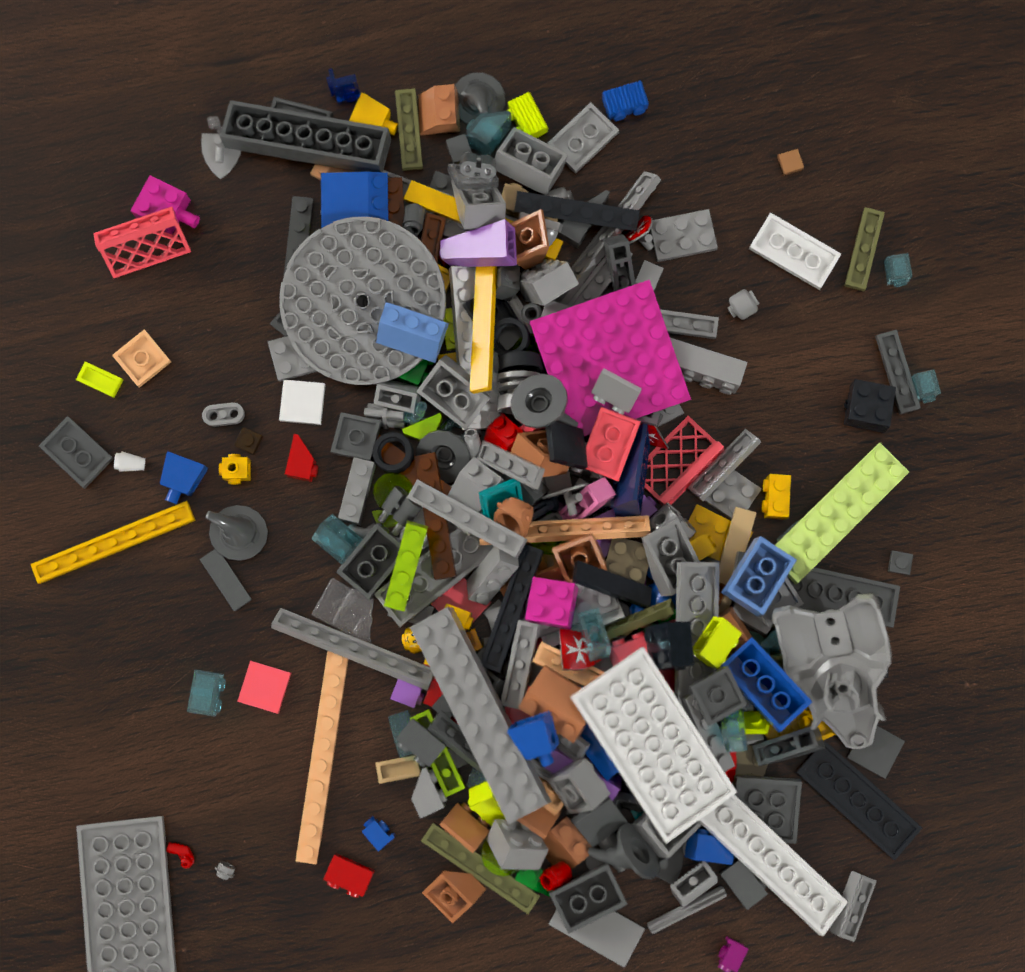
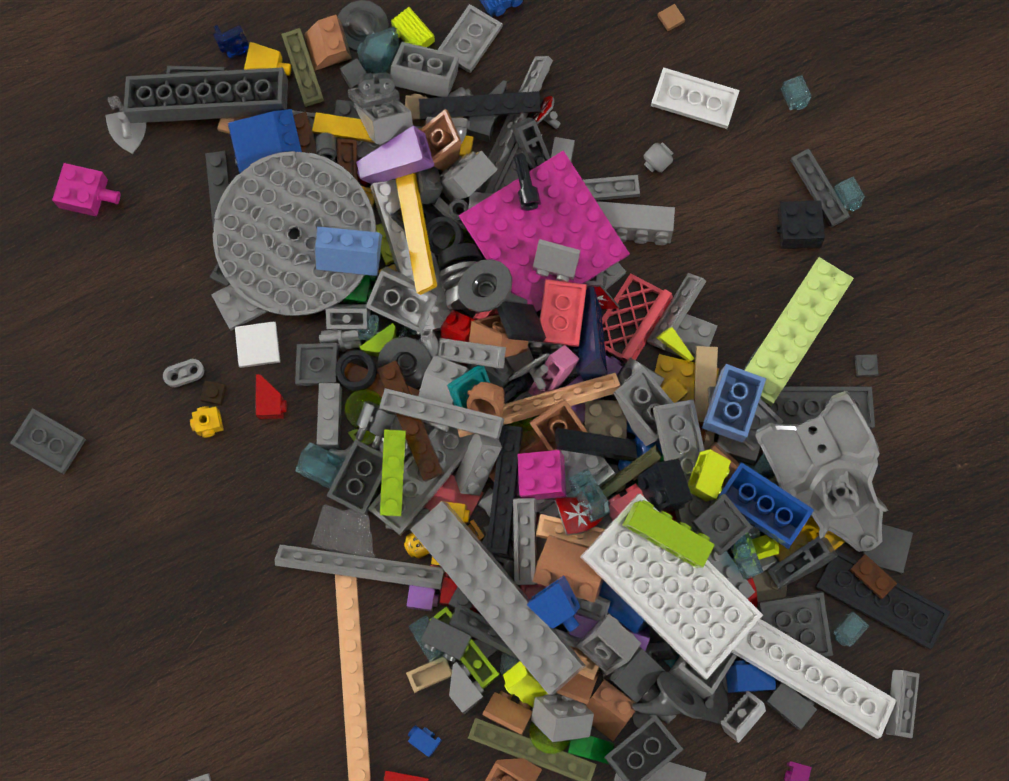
camera: 10 degrees left, 5 degrees down
(99, 379) = (56, 367): neon yellow tile -> none
(112, 542) = (101, 520): yellow tile -> none
(128, 462) = (101, 439): white cone -> none
(137, 230) = (46, 224): coral fence -> none
(141, 358) = (92, 338): light nougat plate -> none
(181, 476) = (155, 440): blue torso -> none
(206, 693) = (225, 643): clear light blue brick -> none
(226, 580) = (220, 530): dark grey tile -> none
(237, 532) = (221, 482): dark grey piece -> none
(264, 687) = (281, 625): coral tile -> none
(556, 876) = (607, 739): red brick -> none
(603, 317) = (528, 193): none -> black piece
(660, 694) = (668, 534): none -> lime brick
(680, 913) = (738, 748): light grey axle -> none
(683, 235) = (586, 107): light grey plate -> none
(714, 496) = (673, 341): none -> neon yellow piece
(776, 497) = (734, 329): yellow brick -> none
(819, 822) = (850, 630): none -> clear light blue brick
(854, 776) = (873, 576): none -> reddish brown plate
(864, 249) = (760, 81): olive plate -> none

